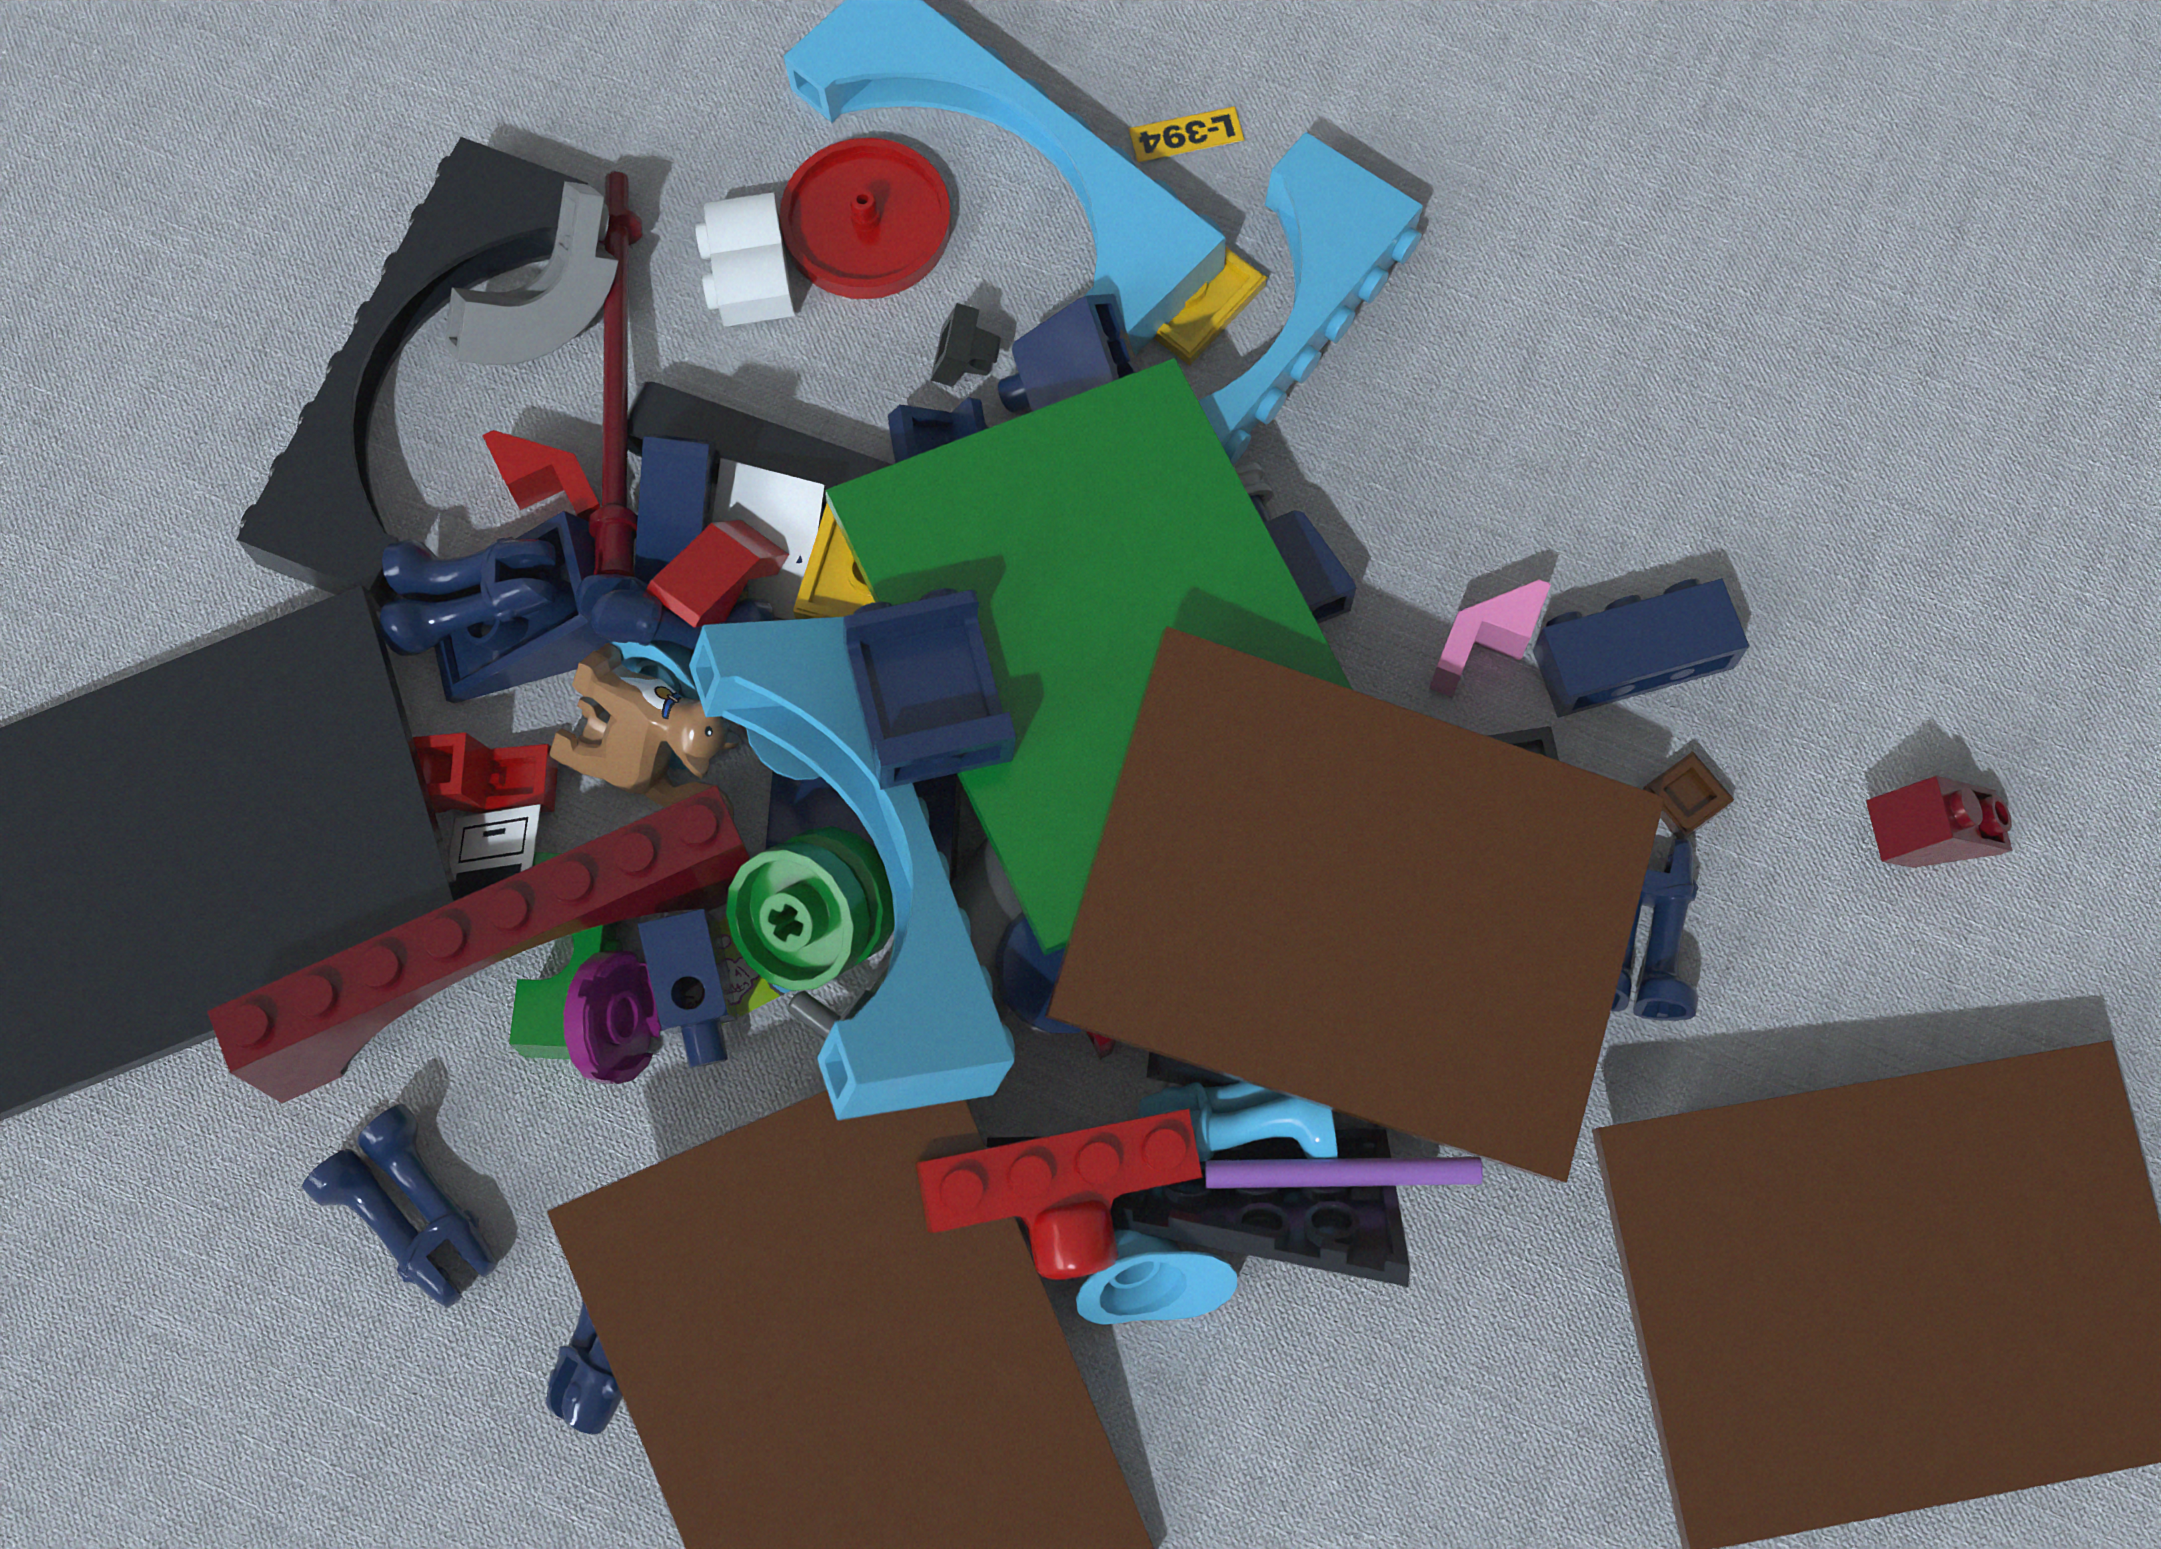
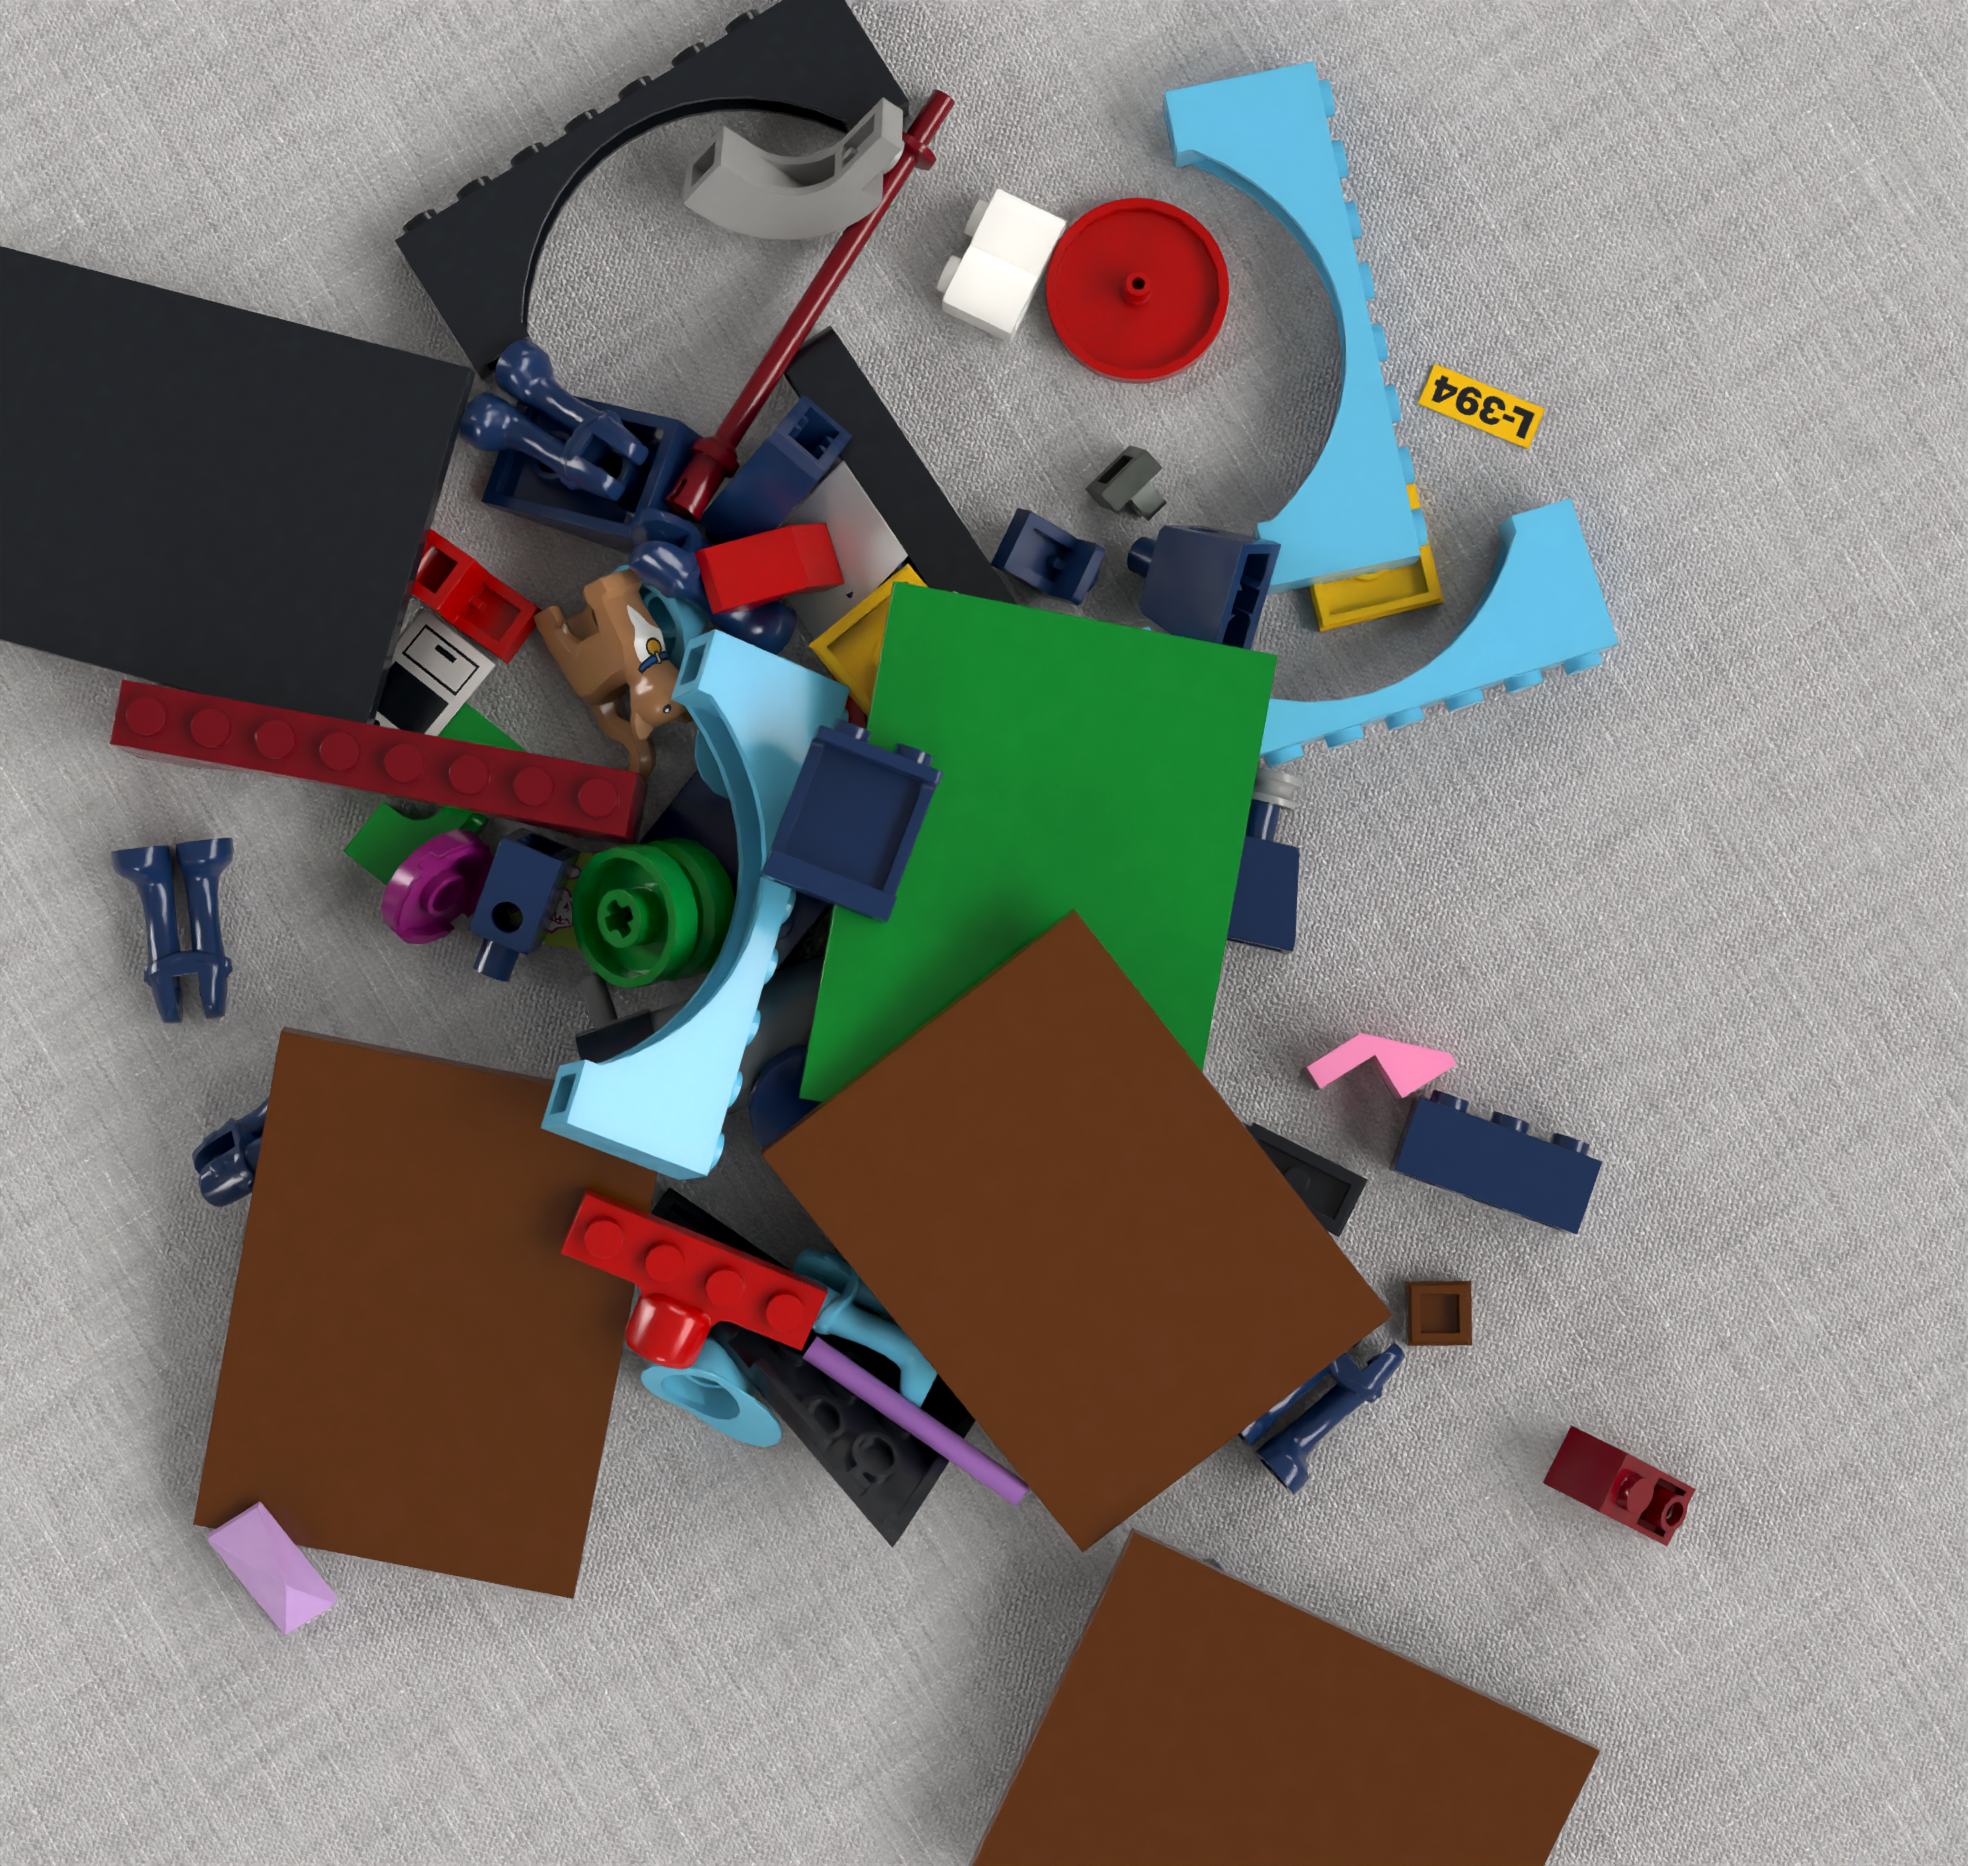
camera: 30 degrees right, 15 degrees up
(539, 472) = (683, 342): red slope -> none

